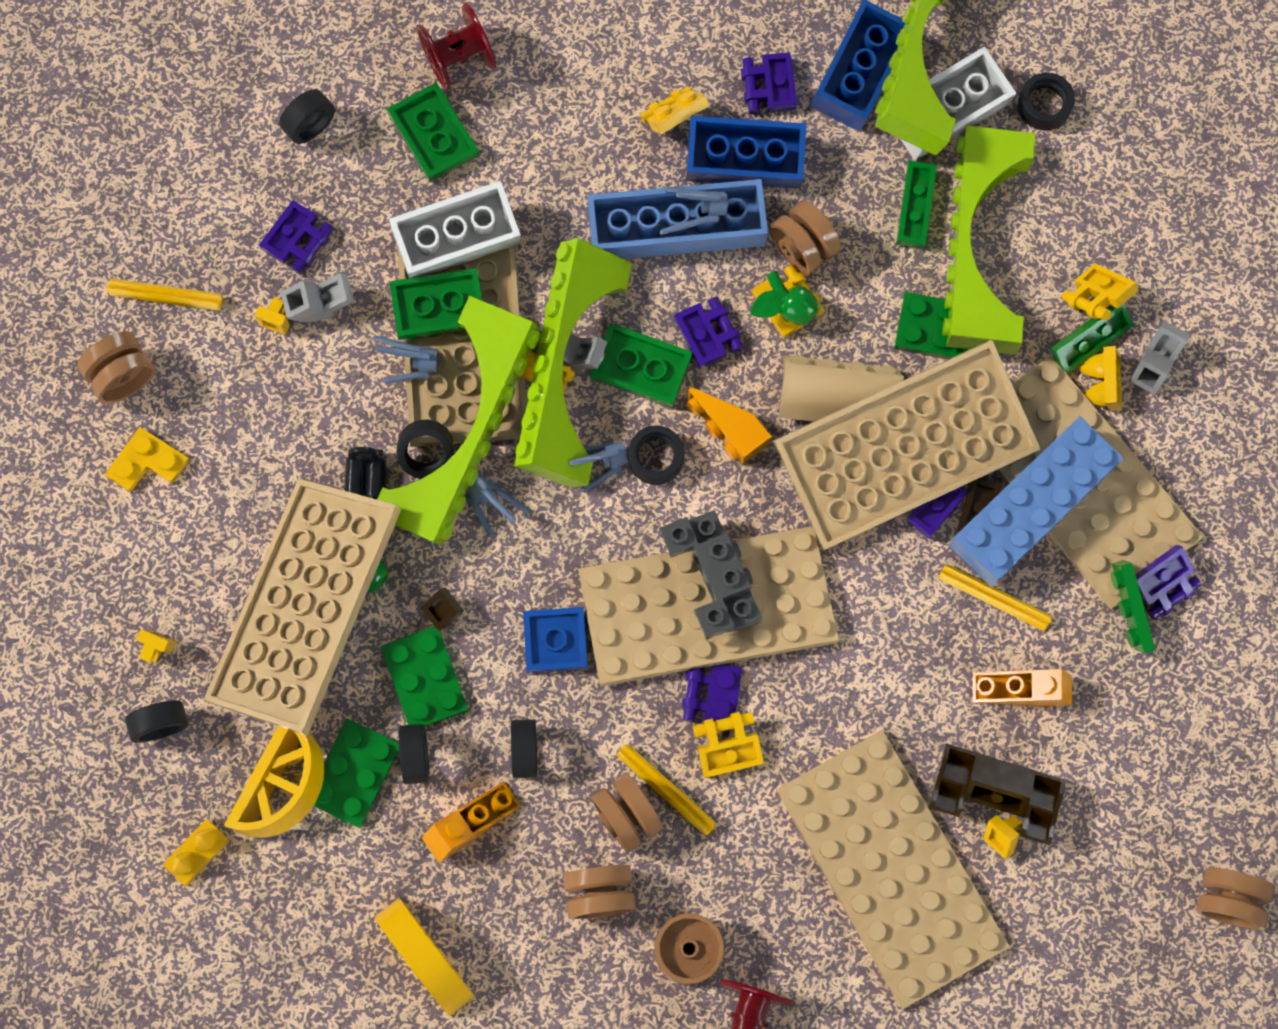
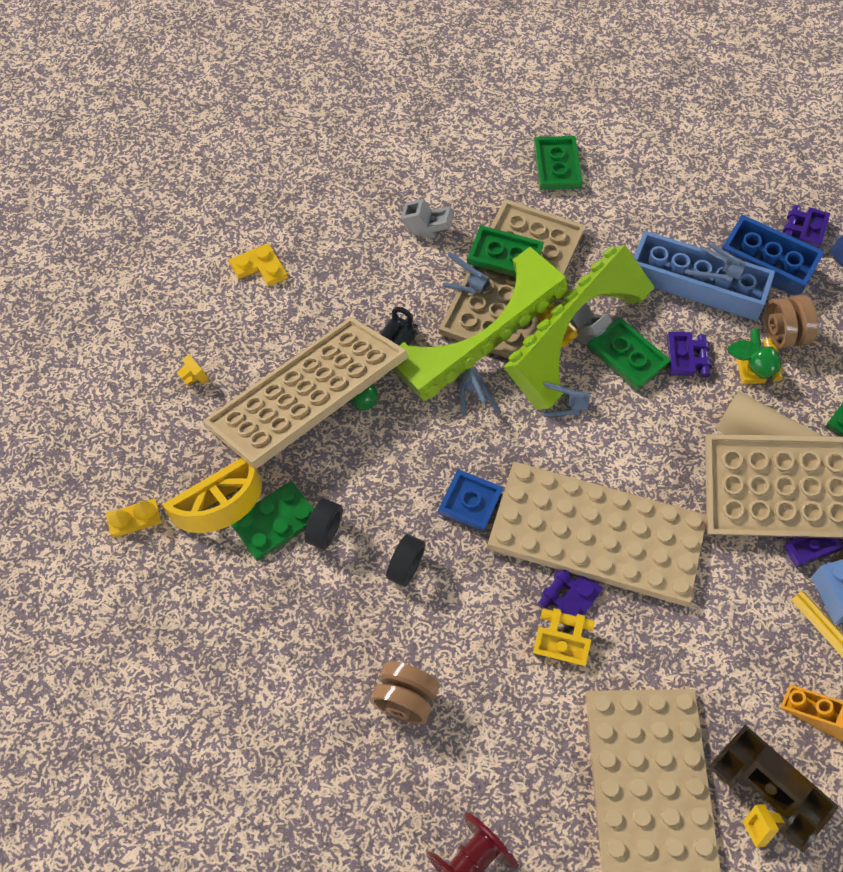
camera: 30 degrees right, 15 degrees down
(116, 367) = (274, 199): medium nougat wheel -> none
(156, 721) = (161, 415): black tyre -> none
(165, 294) = (332, 180): yellow axle -> none
(273, 317) = (391, 218): yellow tile -> none
(289, 231) = (433, 177): dark purple plate -> none
(306, 116) = (476, 108): black tyre -> none
(423, 428) = (446, 316): black tyre -> none
(424, 678) = (362, 481): green plate -> none
(424, 957) = (245, 676): yellow window -> none
(442, 609) = (401, 440): dark brown tile -> none
(455, 230) = (542, 213): white brick -> none
(456, 46) = (609, 118): dark red piece -> none
(470, 822) = (332, 594): light orange slope -> none
(622, 815) = (456, 644): medium nougat wheel -> none
(662, 433) = (614, 398): black tyre -> none
(666, 789) = (498, 648): yellow axle -> none
(674, 109) = (734, 210): yellow plate -> none
(679, 932) = (459, 761): medium nougat wheel -> none
(721, 570) = (621, 507): dark grey bracket -> none
(736, 427) = (679, 422): light orange slope -> none

